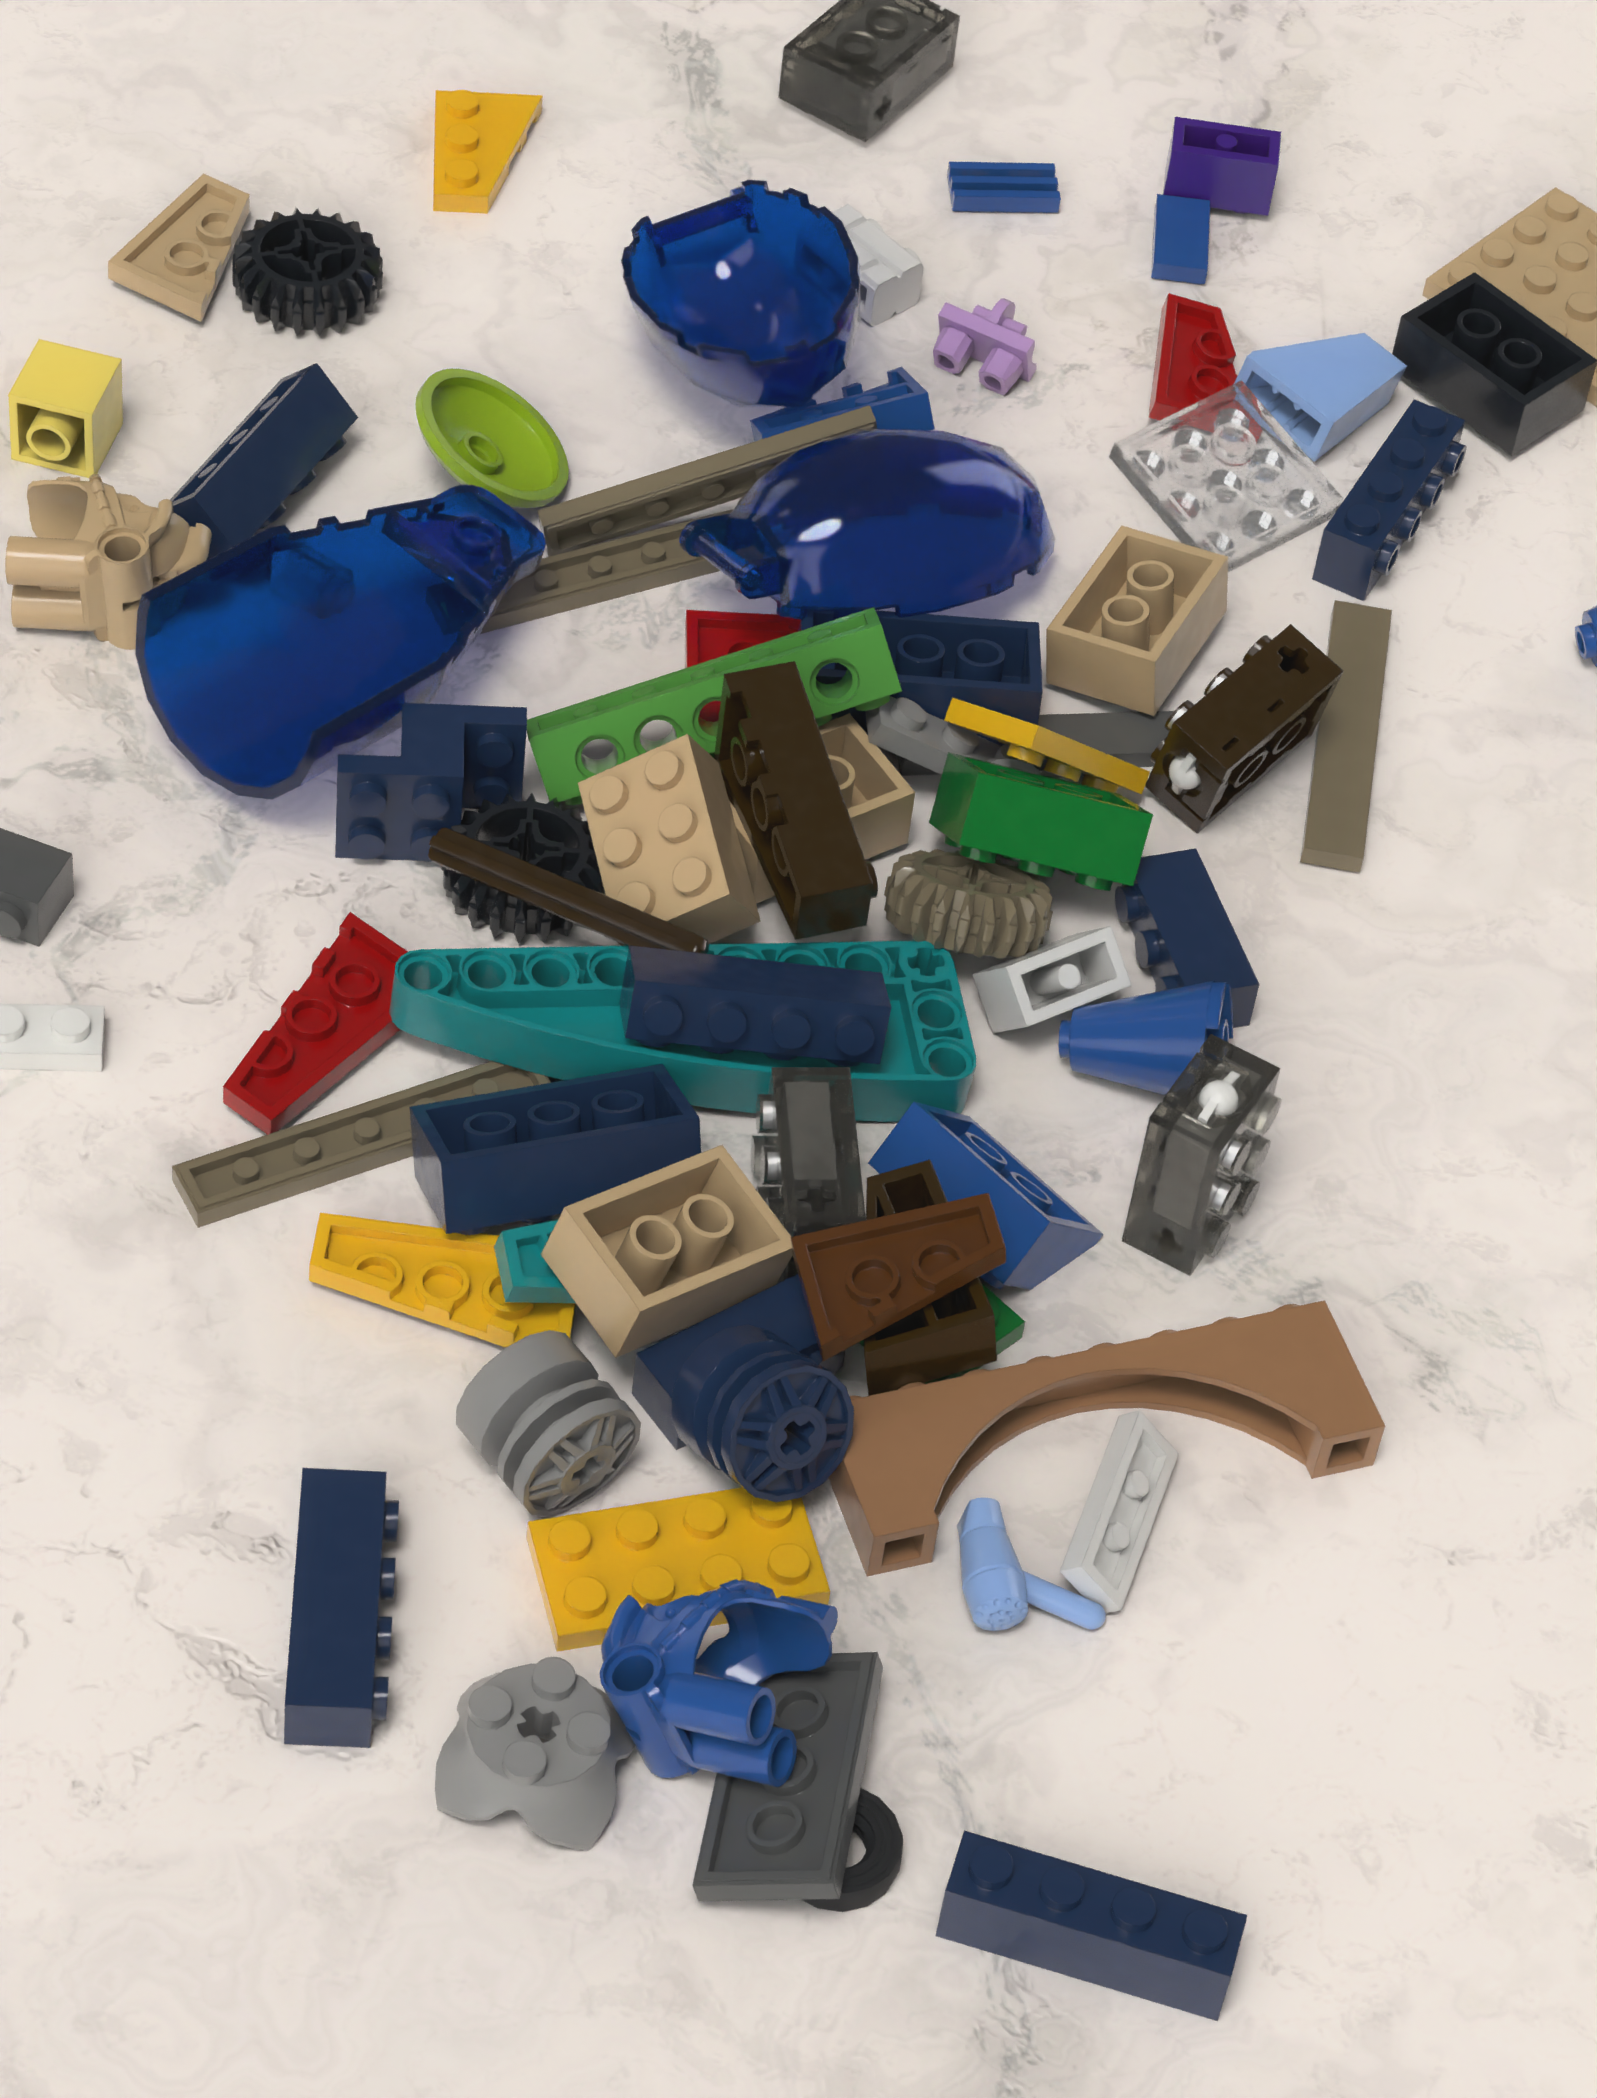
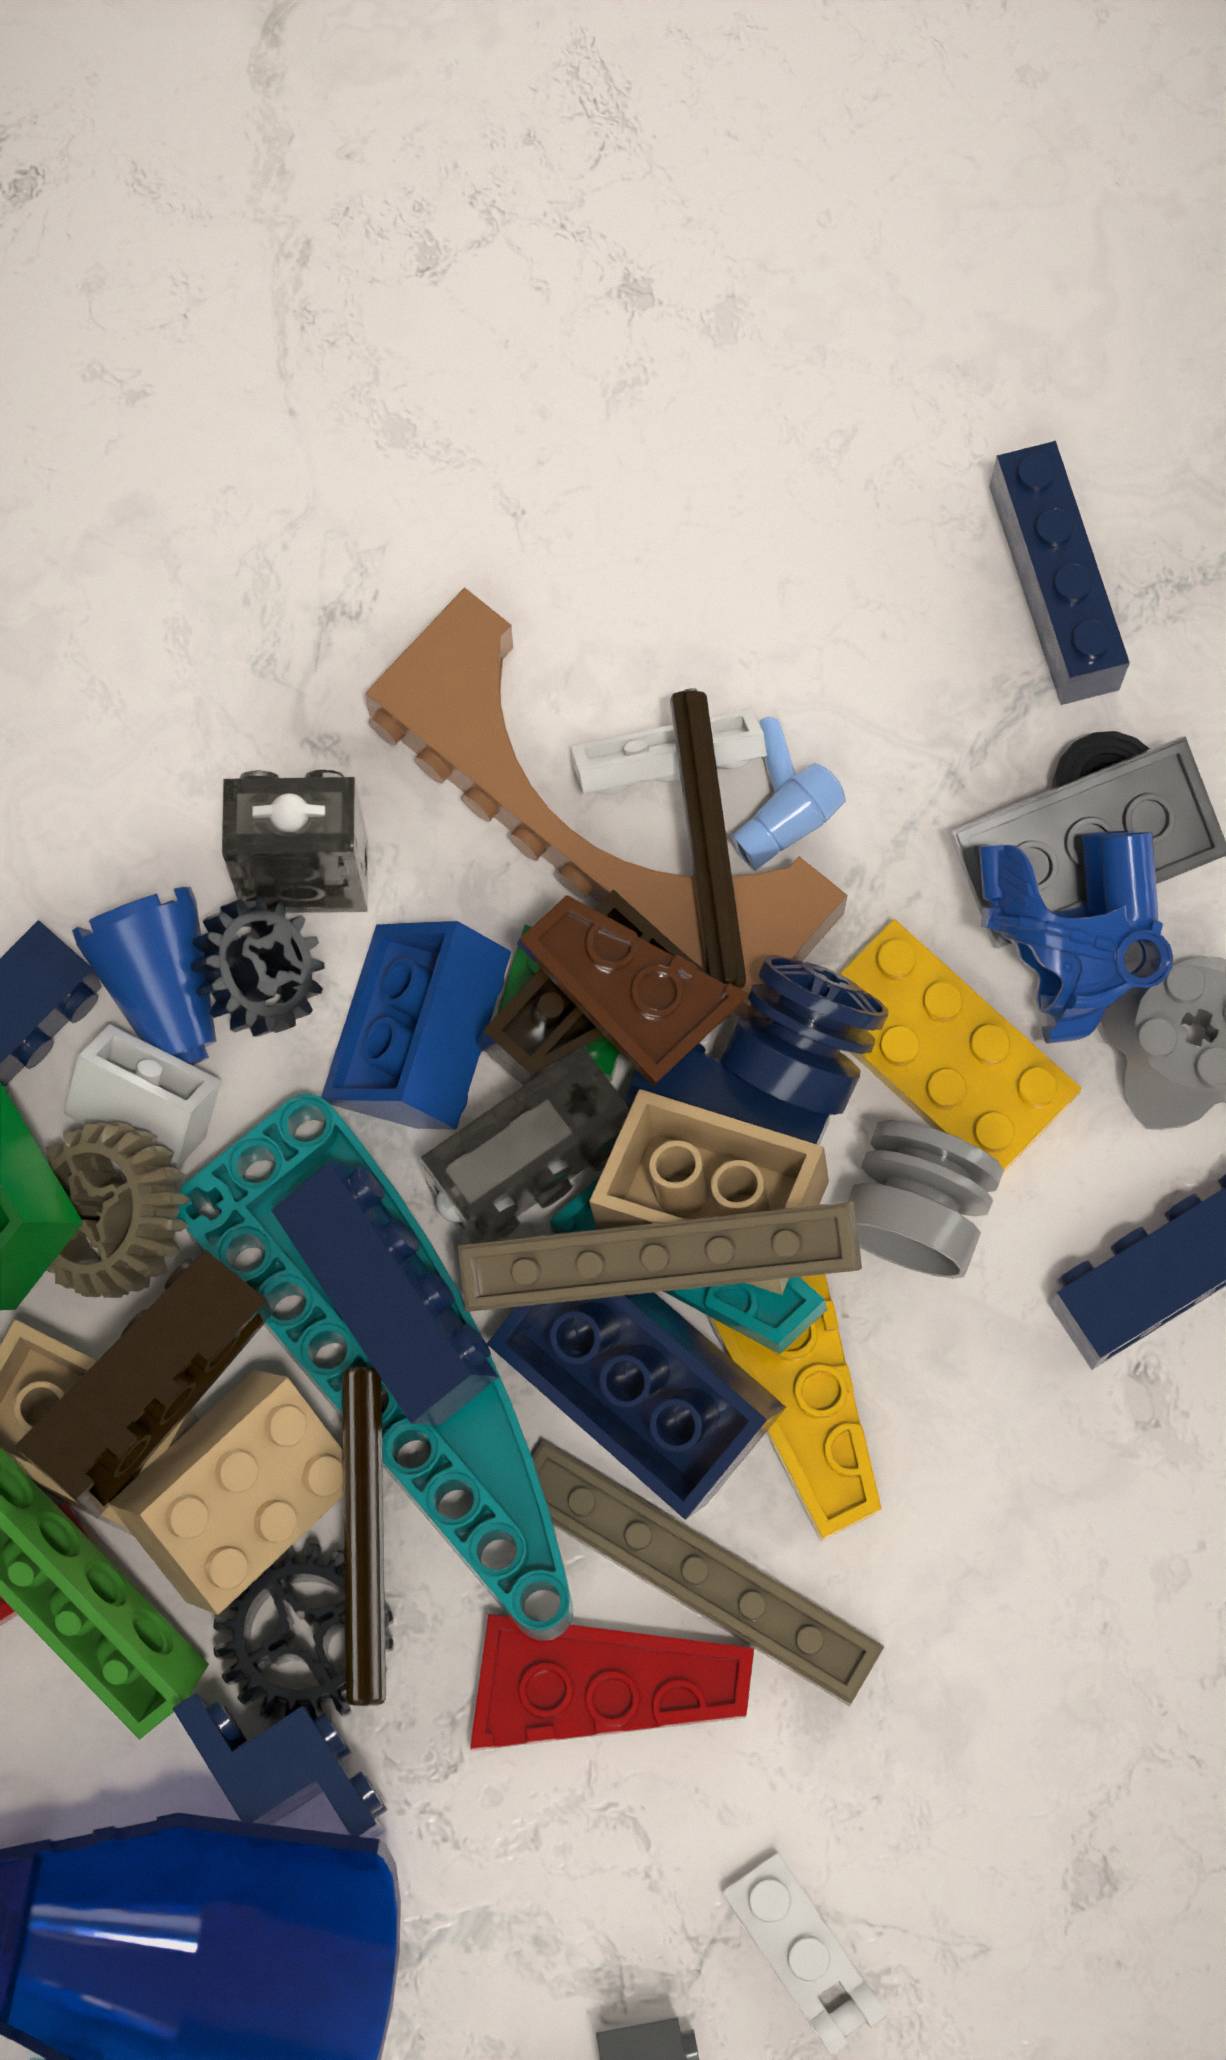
camera: 115 degrees left, 25 degrees up
(631, 1149) = (660, 1256): none -> dark tan tile
(1004, 1450) = (707, 837): none -> dark brown axle
(1097, 1124) = (257, 966): none -> black gear

